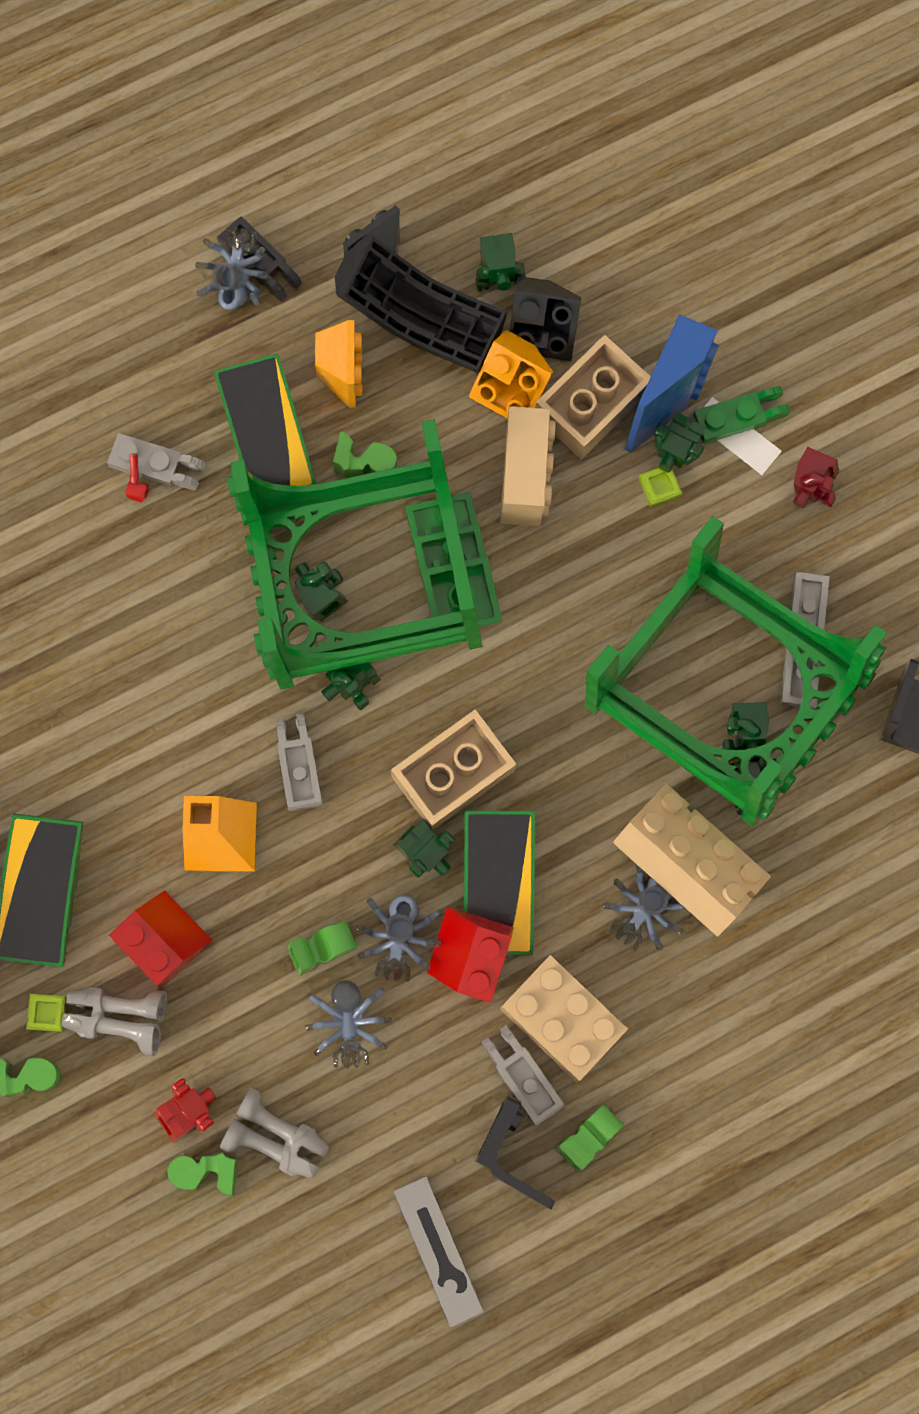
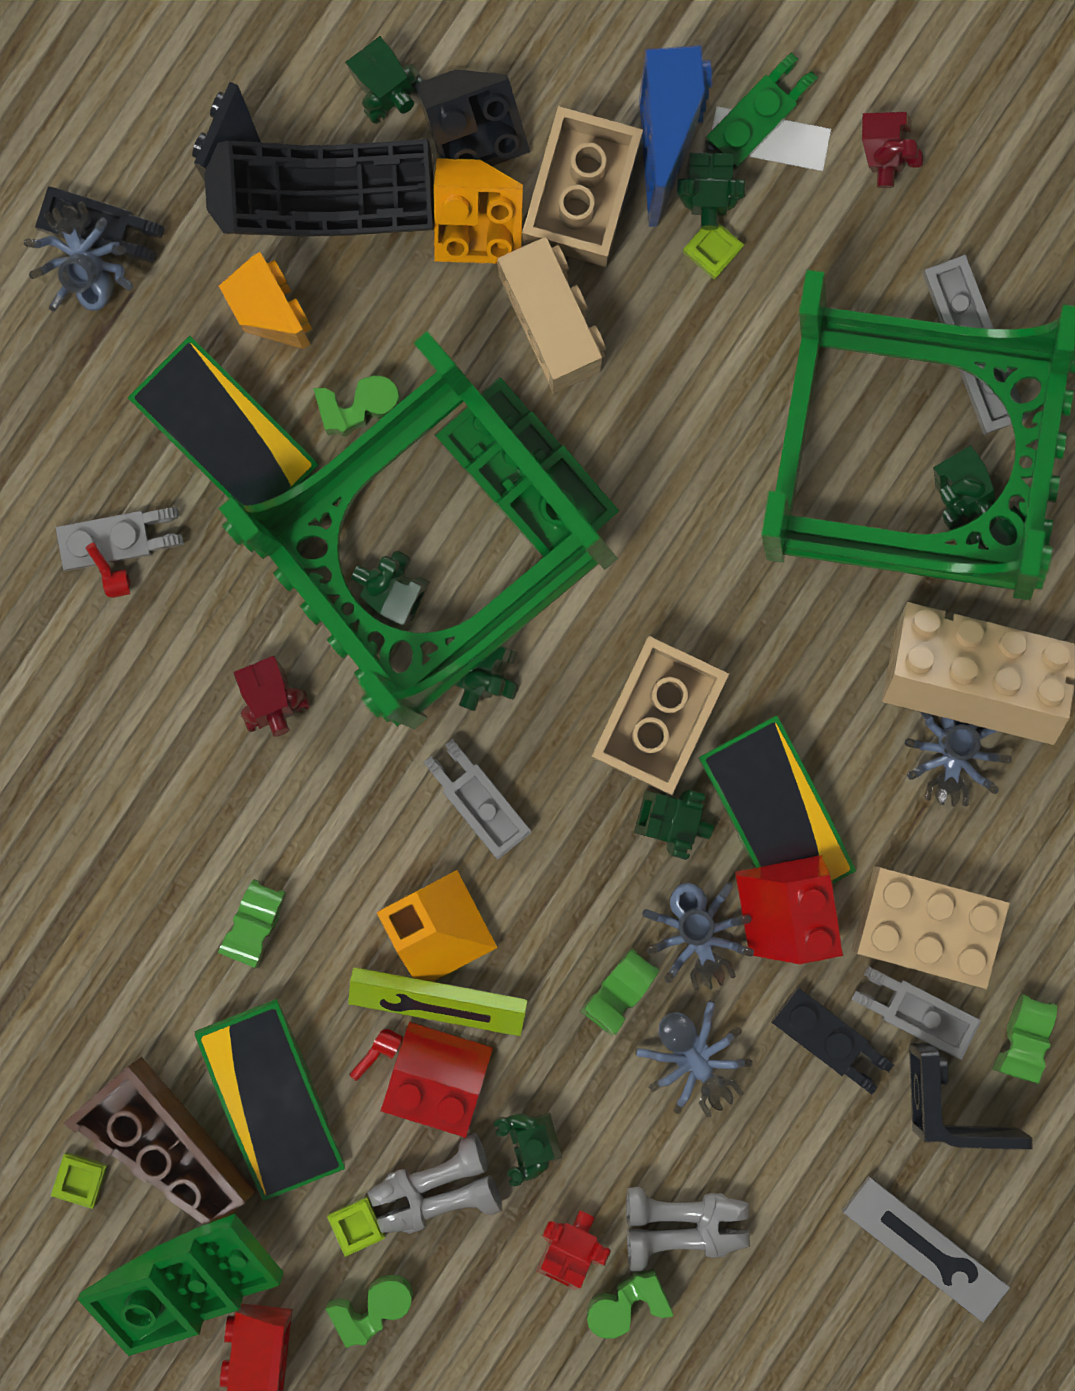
camera: 20 degrees left, 10 degrees up
(98, 761) = (252, 924): none -> bright green leg
(138, 895) = (386, 1044): none -> red hand
(191, 885) = (437, 1001): none -> lime tile
(195, 616) = (268, 696): none -> dark red piece
(204, 1019) = (535, 1144): none -> dark green piece
(450, 1060) = (827, 1037): none -> black hinge

